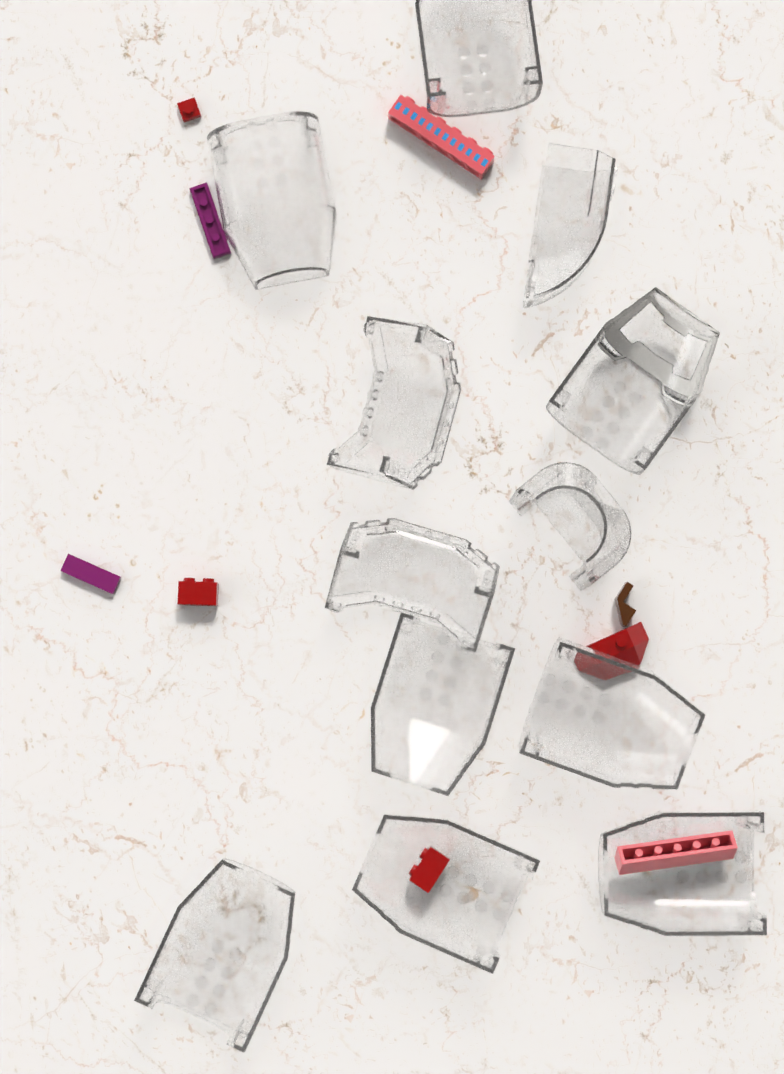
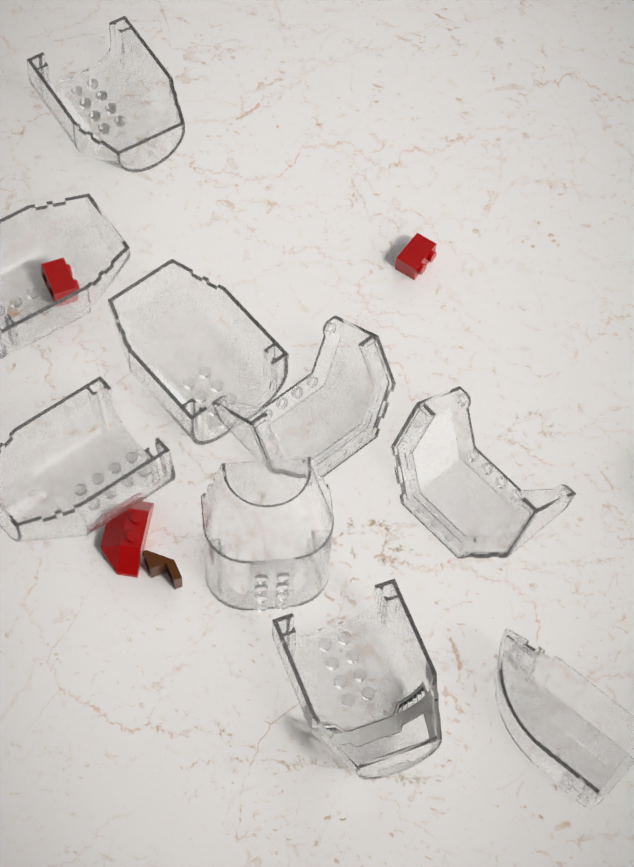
camera: 120 degrees right, 25 degrees down
(90, 573) = (487, 196): magenta tile -> none

